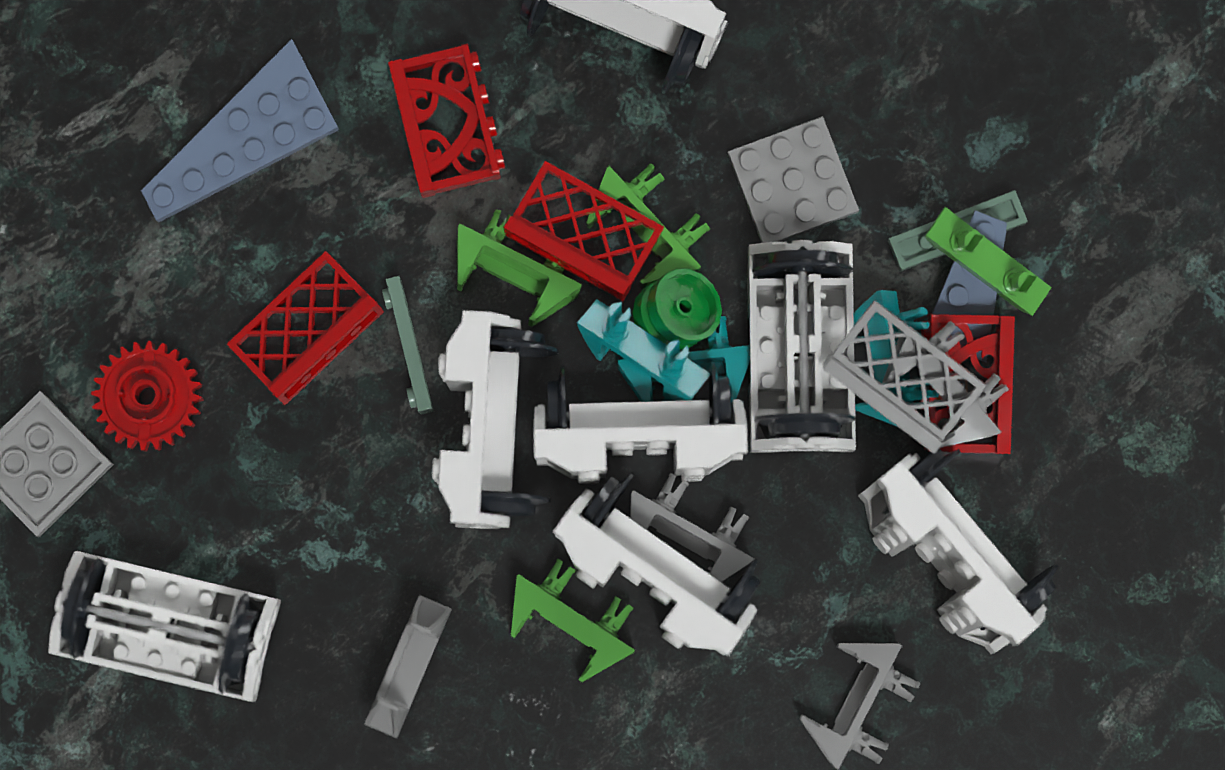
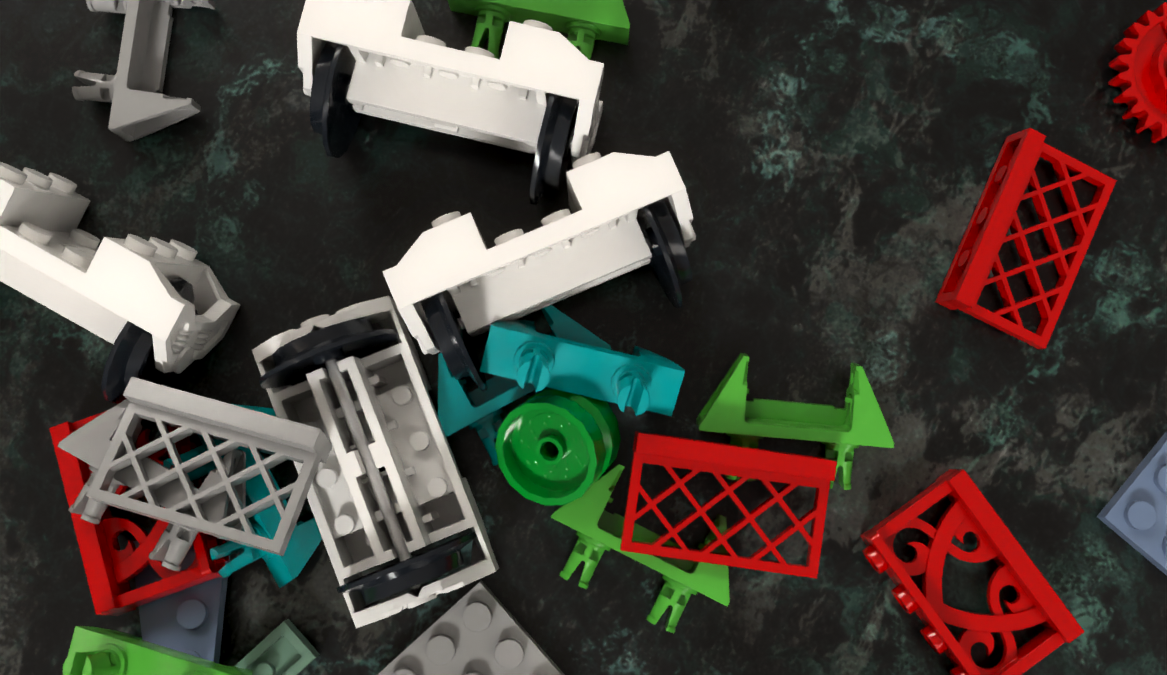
camera: 165 degrees right, 0 degrees up
(419, 393) = (927, 319): sand green plate -> none
(485, 365) = (734, 115): white piece -> none
(715, 546) = (372, 157): light grey hose -> none

